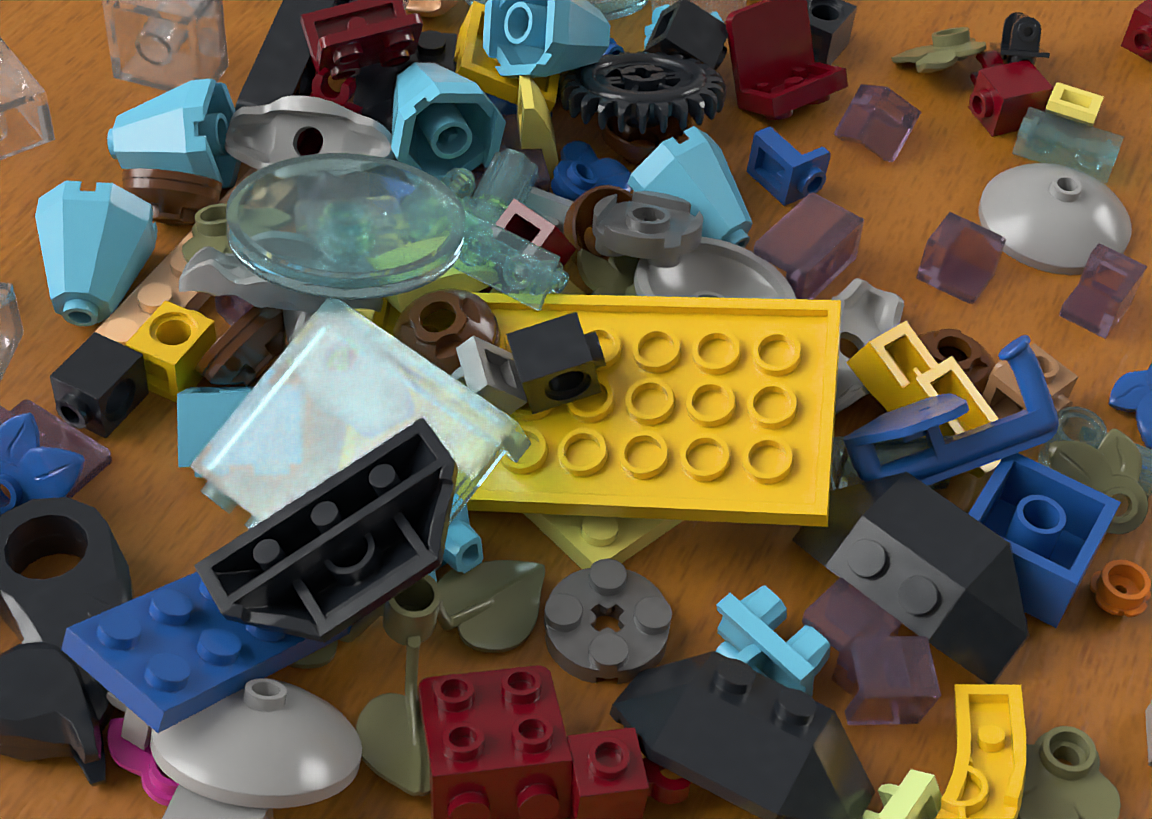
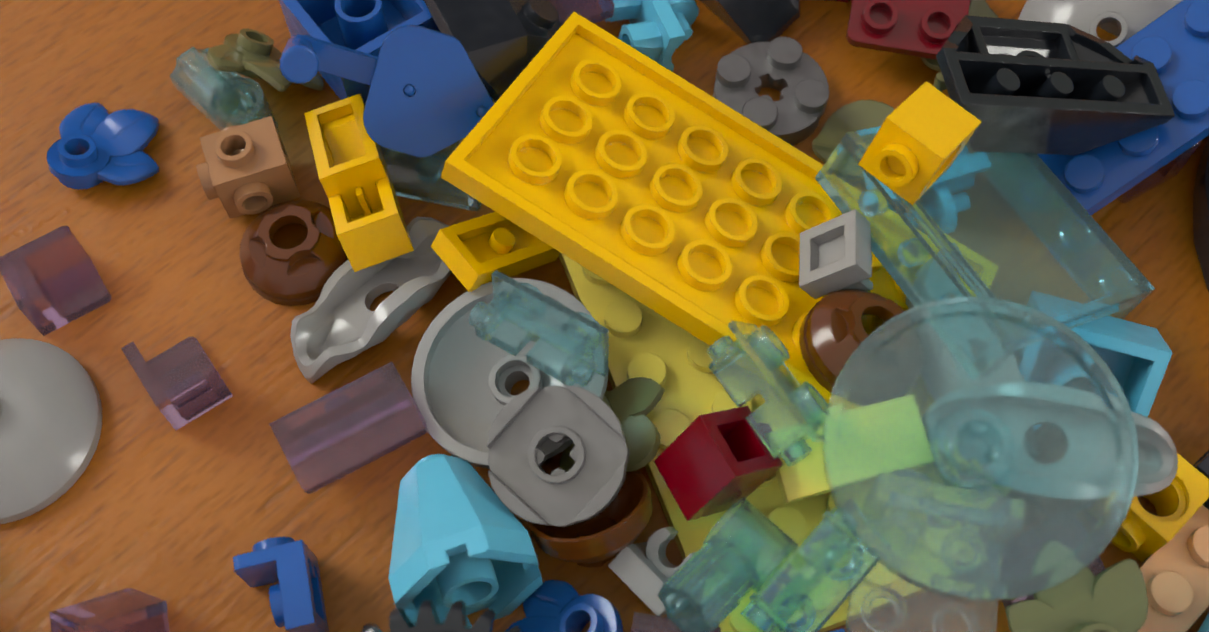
camera: 155 degrees left, 15 degrees up
(453, 395) = (918, 142): none -> yellow brick
(556, 362) = (768, 231): black brick -> none
(675, 272) = (567, 342): none -> clear light blue hinge

